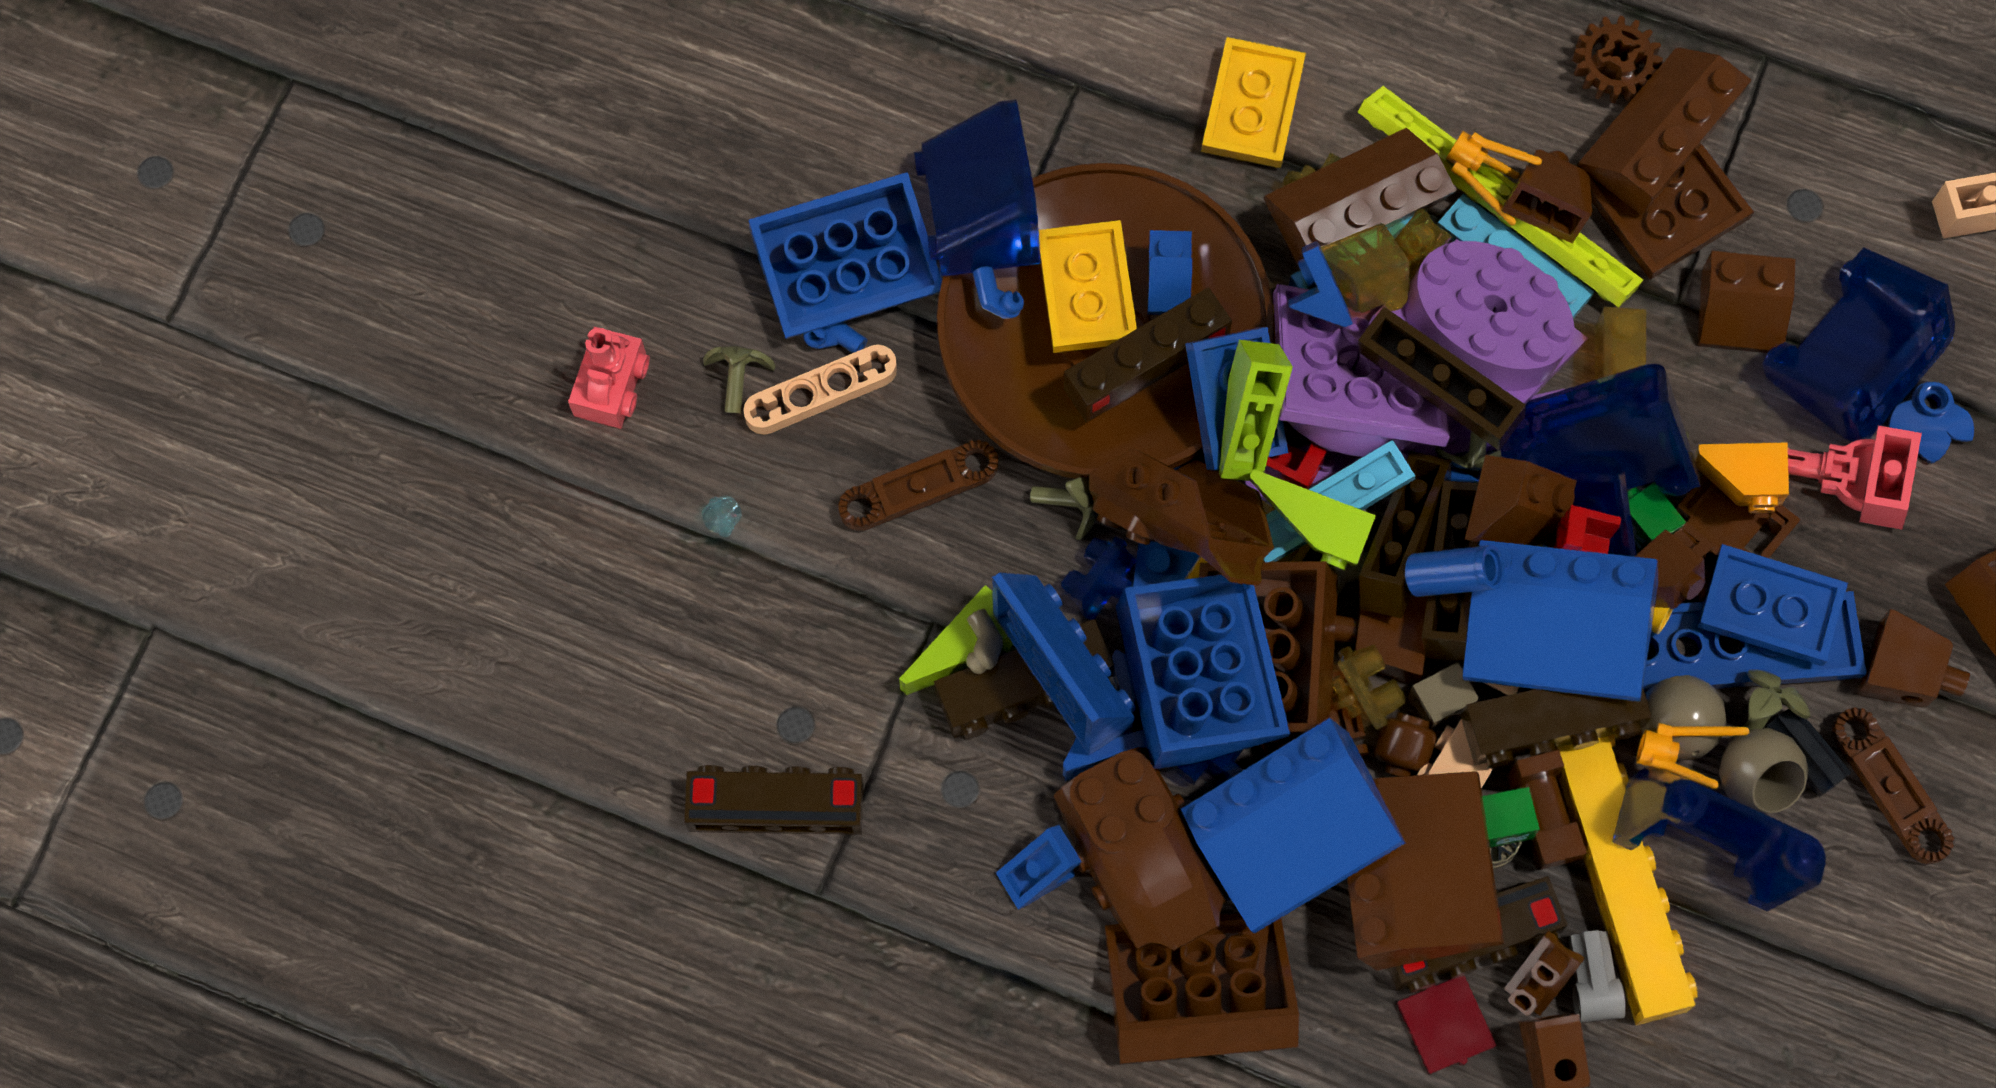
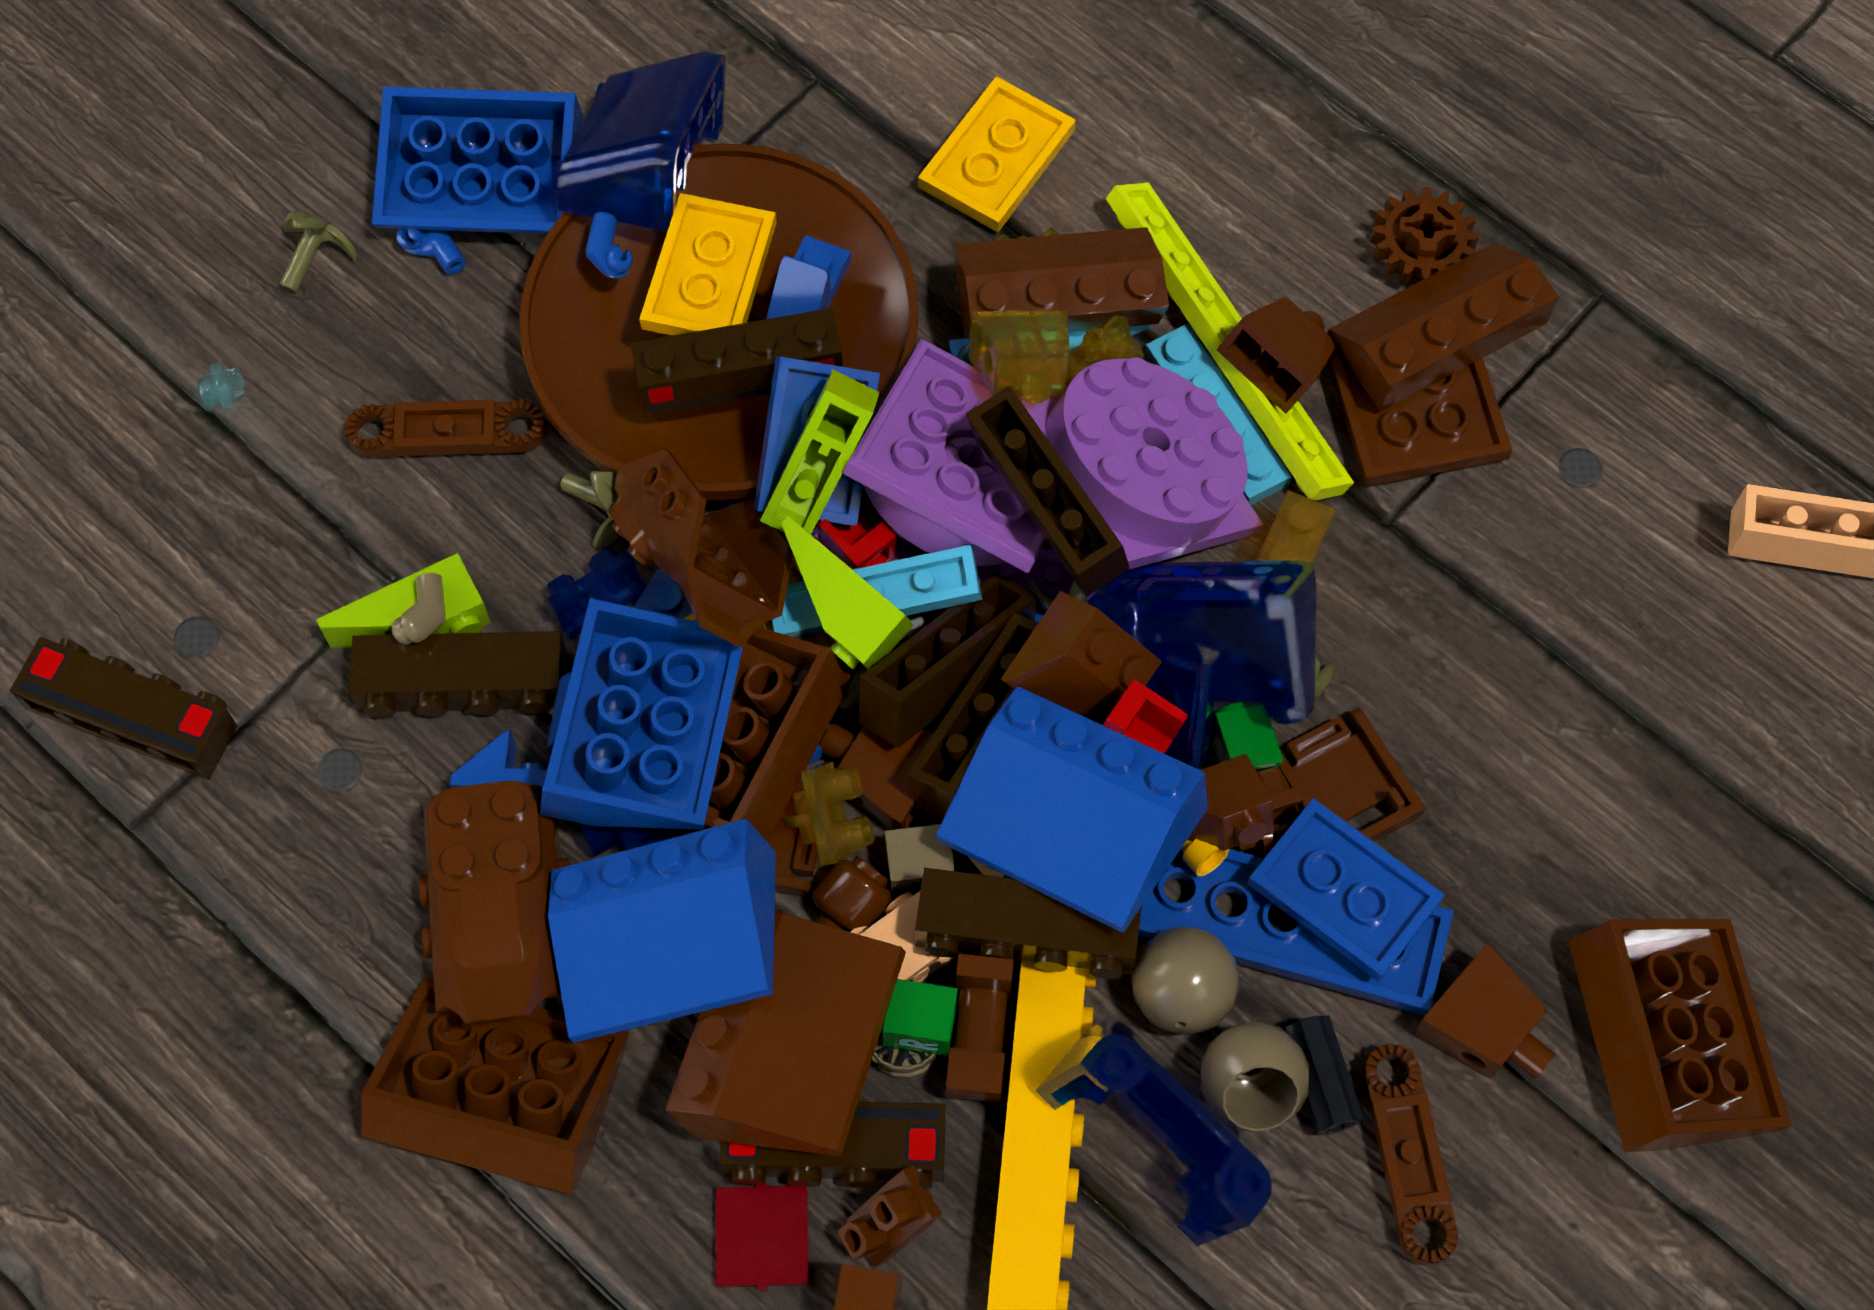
camera: 20 degrees right, 5 degrees down
(608, 377) = (170, 200): coral brick -> none
(823, 396) = (390, 302): light nougat beam -> none
(1039, 867) = (377, 884): blue slope -> none
(1060, 659) = (488, 651): blue slope -> none
(1325, 299) = (963, 365): blue slope -> none
(1454, 571) = (967, 707): blue pin -> none
(1470, 153) = (1205, 277): light orange plant -> none
(1596, 990) = (952, 1259): light grey piece -> none
(1660, 752) = (1133, 1007): light orange plant -> none
(1745, 301) = (1462, 545): reddish brown slope -> none
(1747, 472) = (1377, 724): light orange slope -> none
(1769, 699) = (1285, 997): olive plant -> none
(1866, 474) = (1524, 783): coral brick -> none
(1867, 346) = (1587, 646): clear blue windscreen -> none
(1936, 425) = (1626, 760): blue plate -> none

